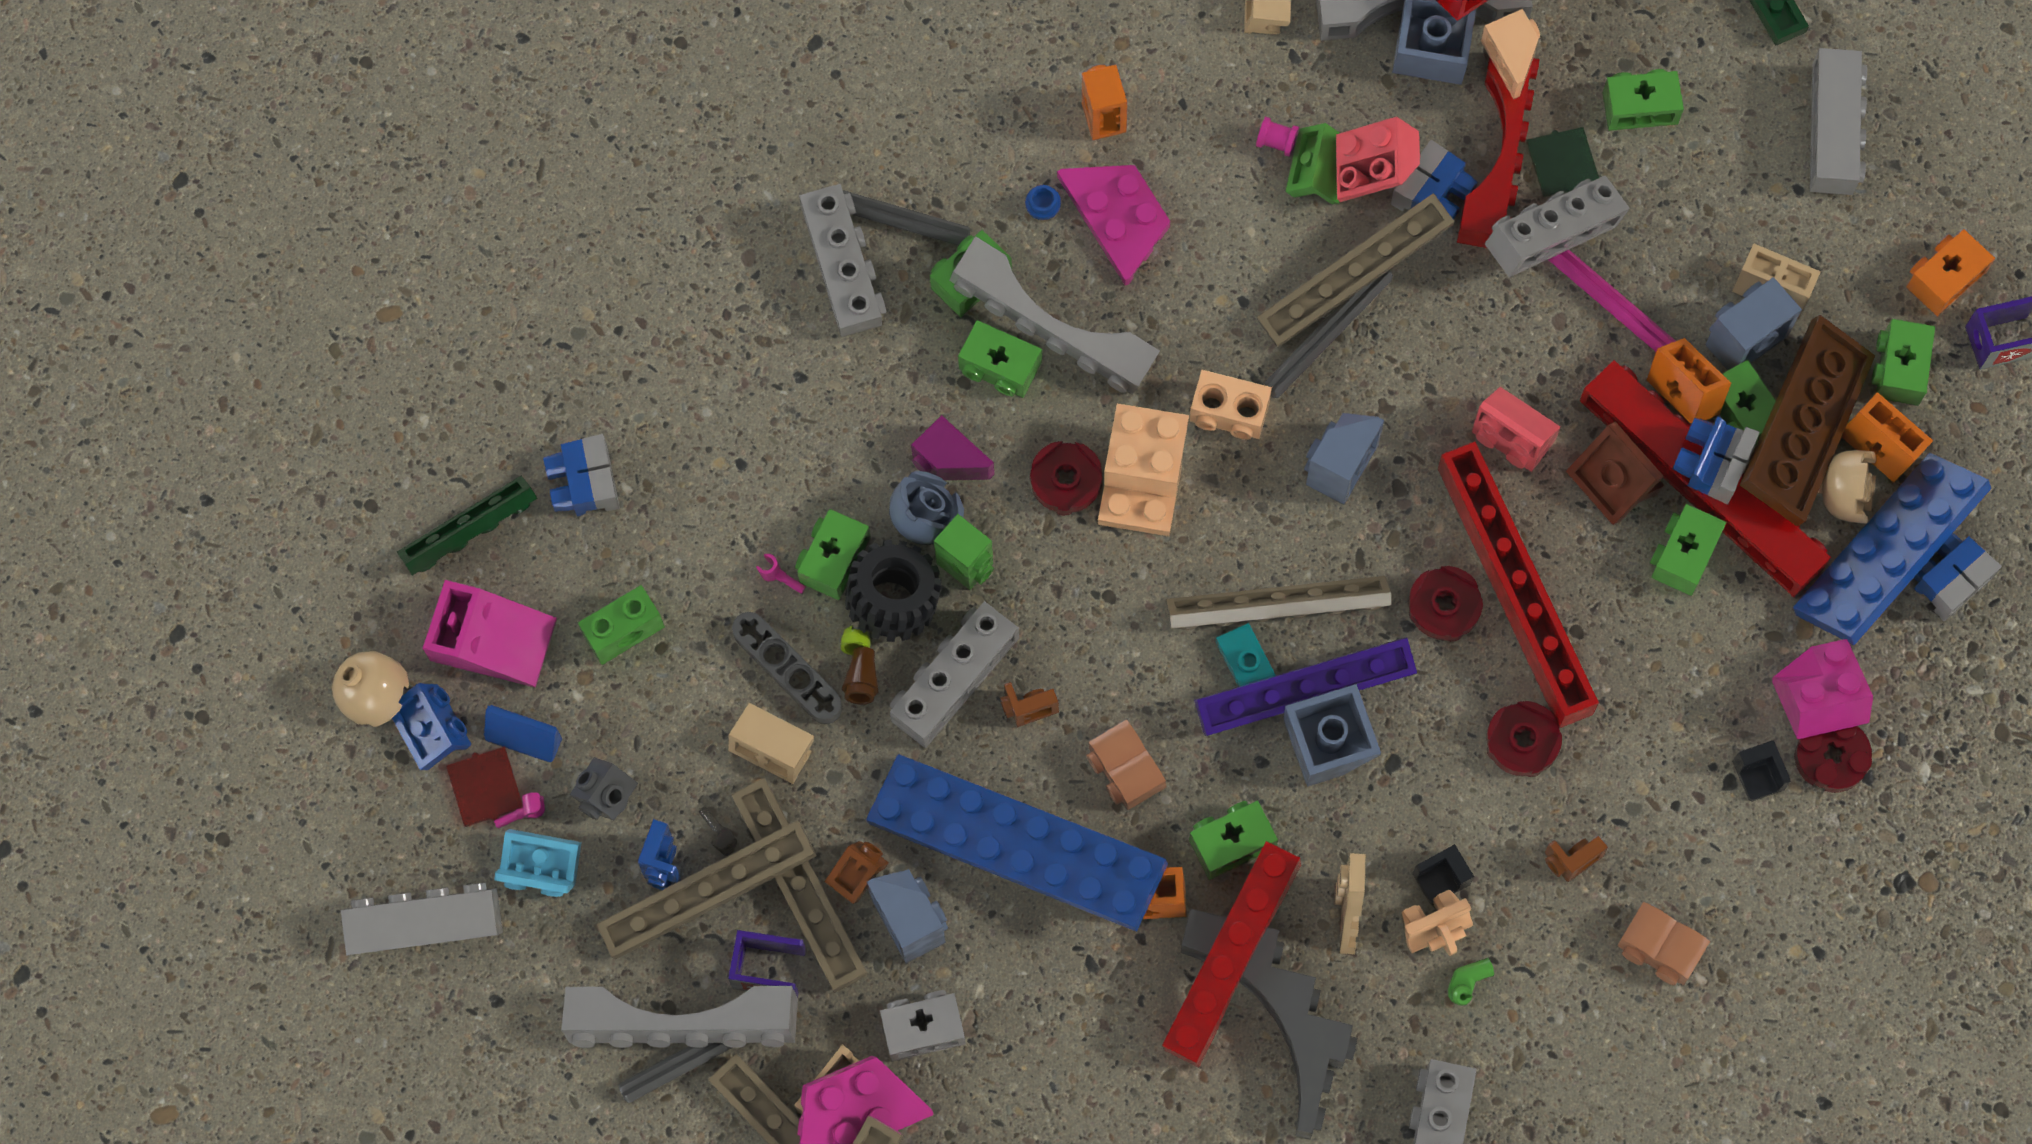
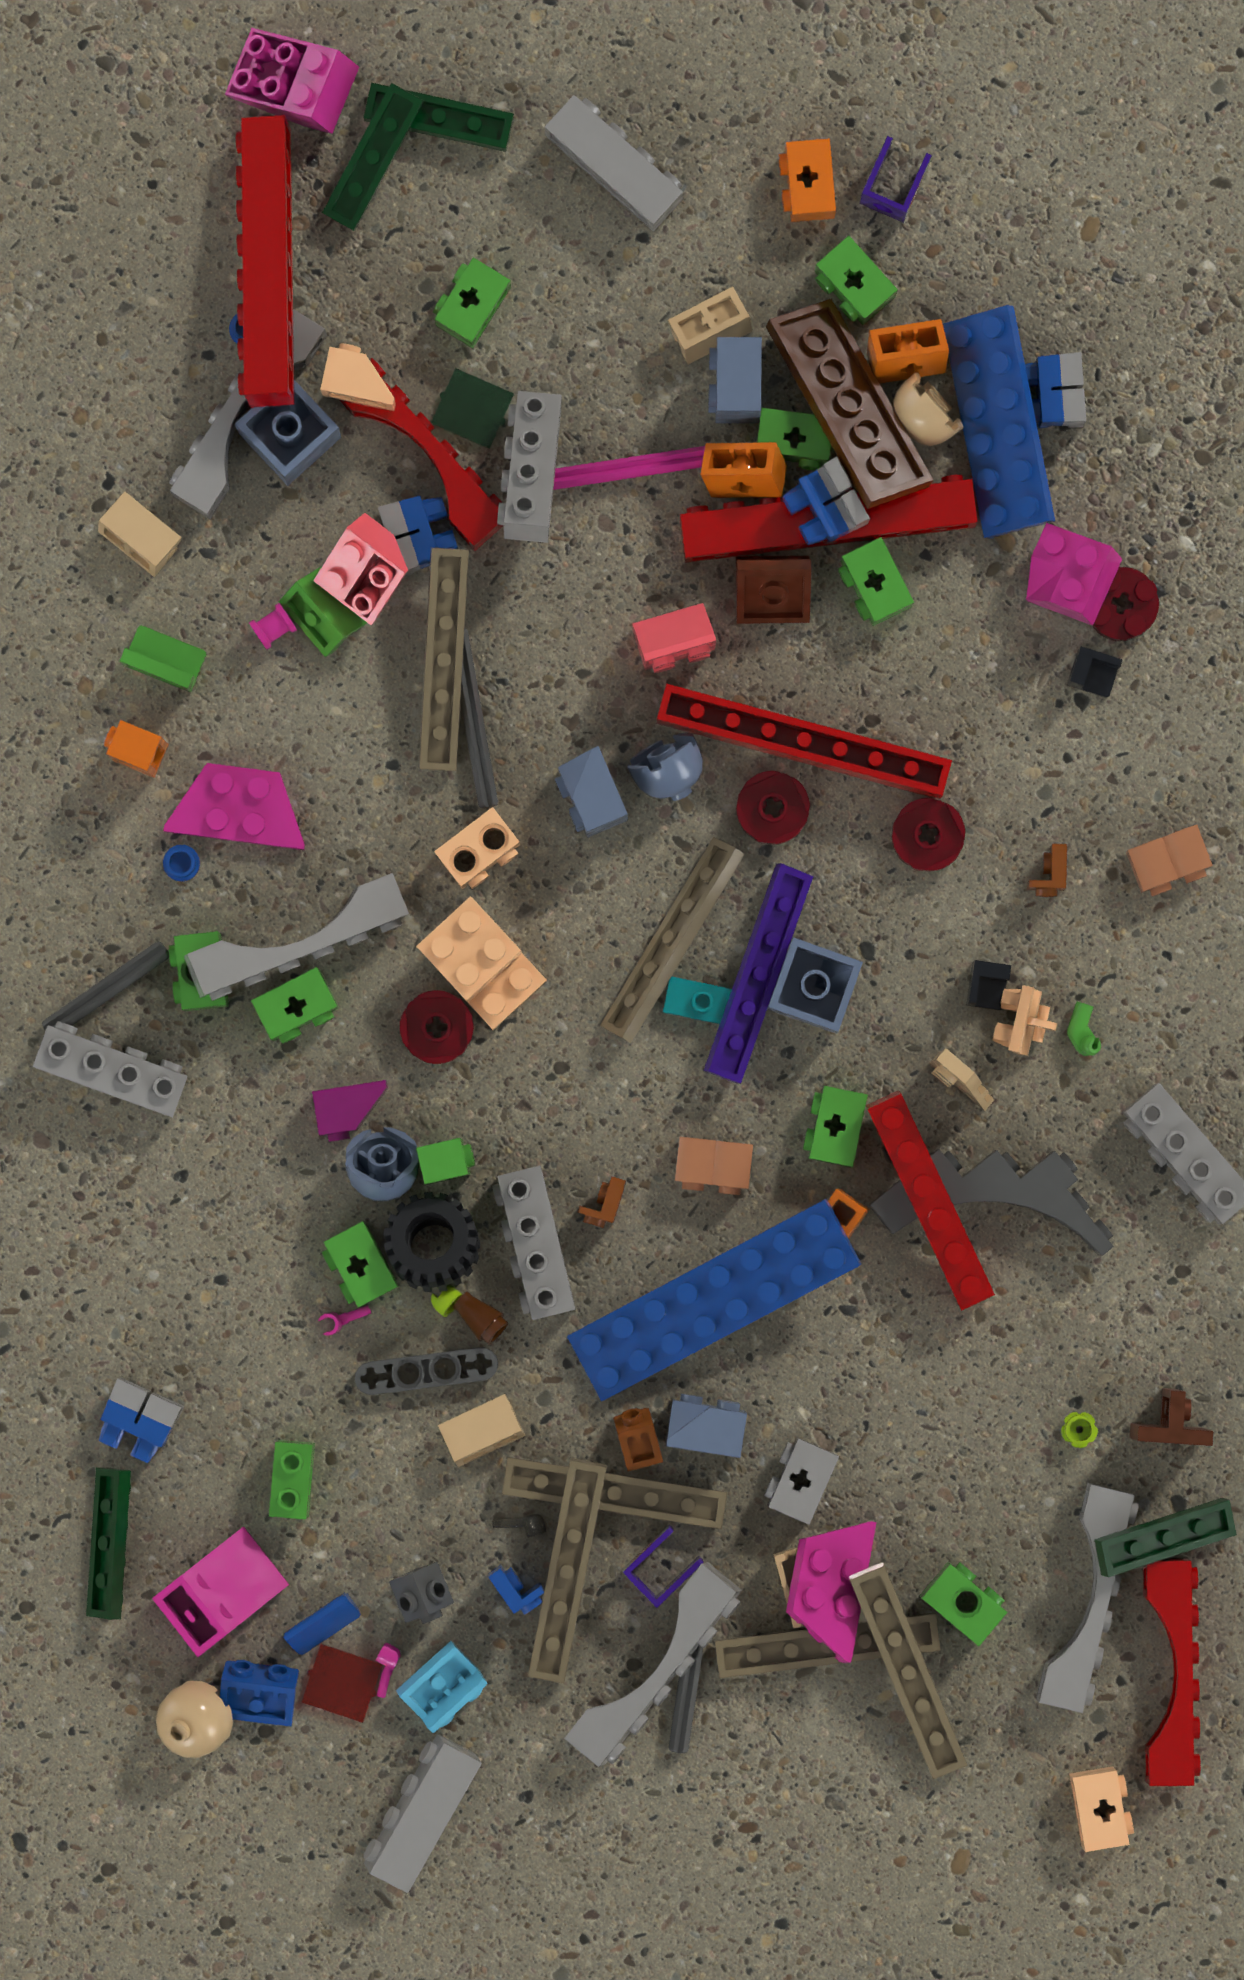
camera: 55 degrees left, 15 degrees up
(1188, 80) = (164, 658): none -> bright green panel
(1410, 499) = (668, 768): none -> sand blue cylinder

